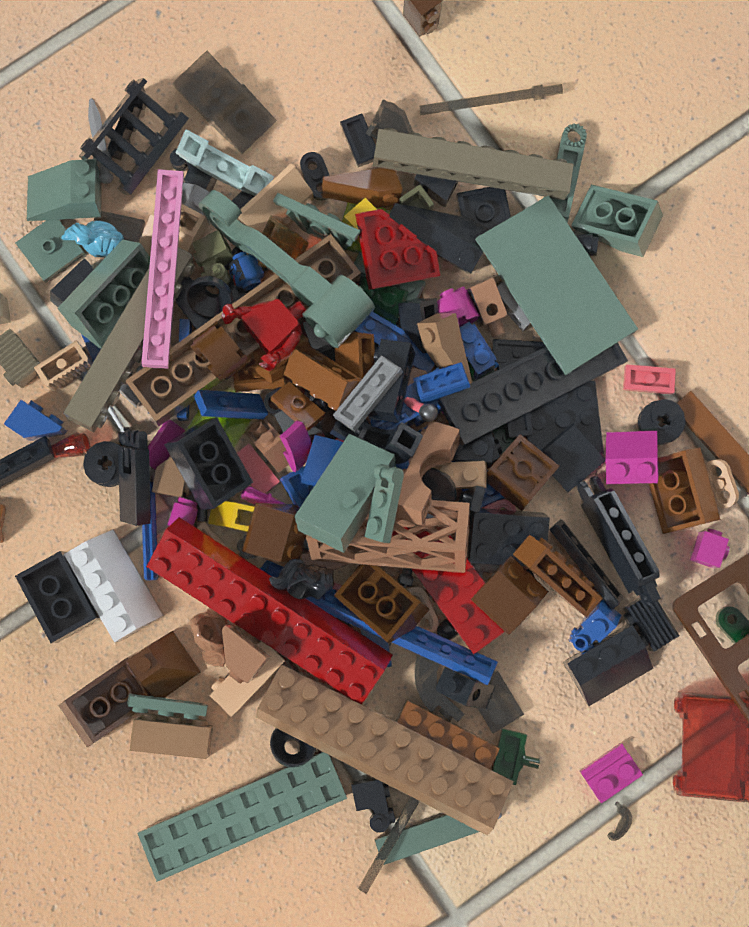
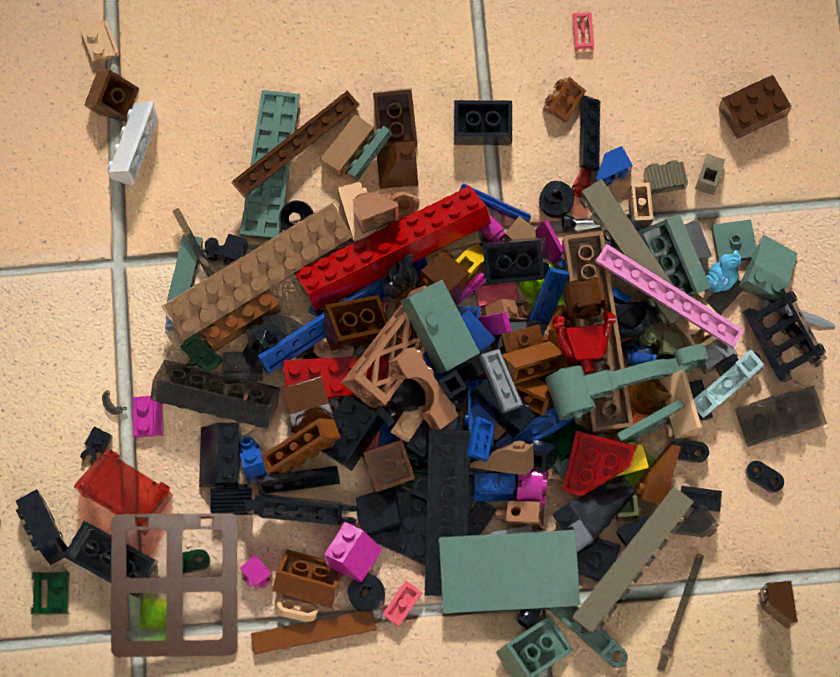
camera: 125 degrees right, 10 degrees down
(113, 585) = (470, 161): white slope -> none
(134, 479) = (534, 208): black hinge -> none
(204, 799) = (295, 144): none -> reddish brown plate
(299, 86) = (764, 478): none -> black plate
(384, 503) = (416, 341): sand green plate -> none
(427, 411) = (465, 416): flat silver piece -> none
(550, 711) = (215, 394): none -> clear smoke brick
(671, 811) = (96, 442): none -> black plate

